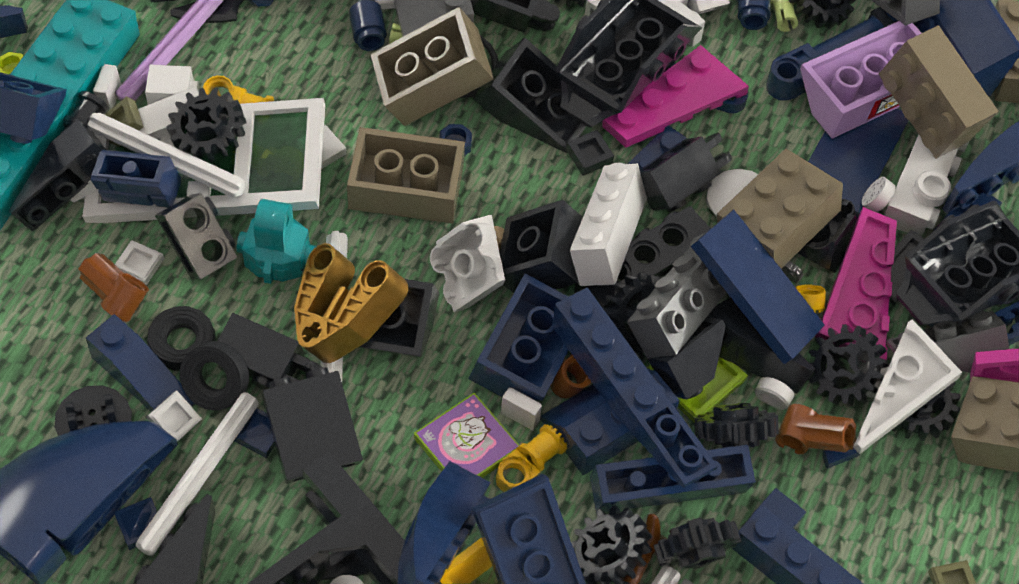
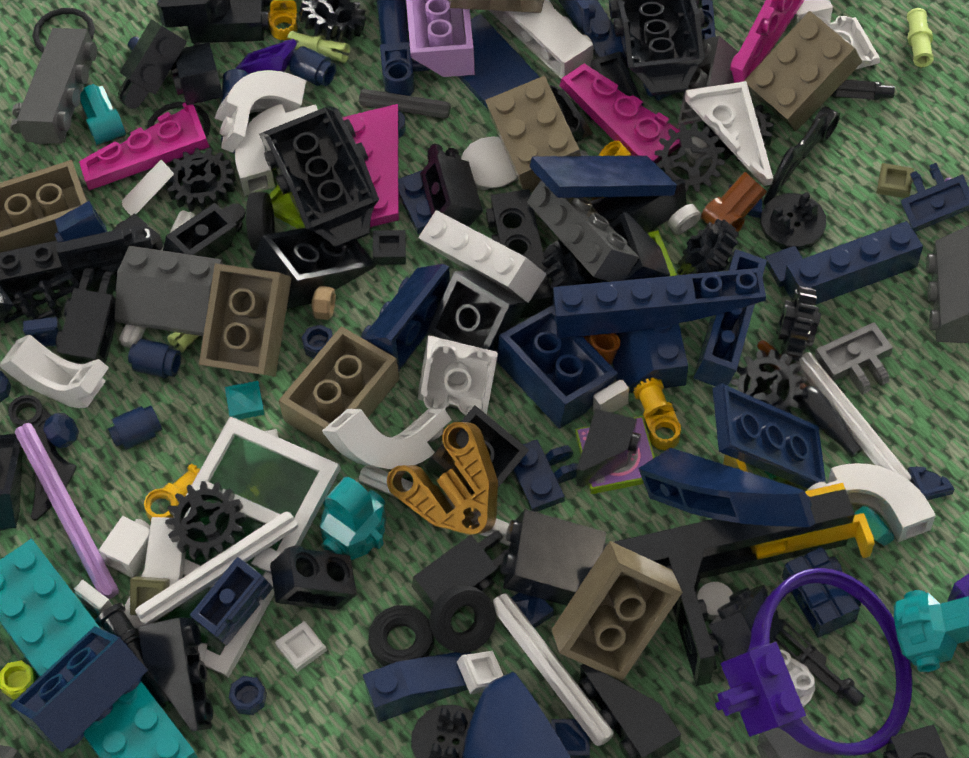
camera: 55 degrees left, 0 degrees up
(70, 242) = (247, 695): none -> dark blue tile
(117, 289) = (330, 669): dark orange piece -> none
(264, 493) = (616, 611): none -> dark tan brick
(291, 41) = (134, 427): none -> dark blue brick
(352, 231) = (362, 443): none -> white arch
(364, 111) = (244, 400): none -> teal tile
(406, 381) = (537, 479): none -> dark blue hinge
(457, 421) = (607, 446): none -> black slope
(496, 125) = (323, 302): none -> tan tile
(506, 193) = (407, 317): none -> dark blue slope
(545, 24) = (259, 217): none -> black tyre
(763, 98) = (405, 103): none -> dark grey axle
(853, 508) = (803, 211): none -> black plate
(878, 194) = (548, 65): white tile -> none
(931, 188) = (568, 27): white tile -> none
(973, 480) = (821, 129): none -> black piece

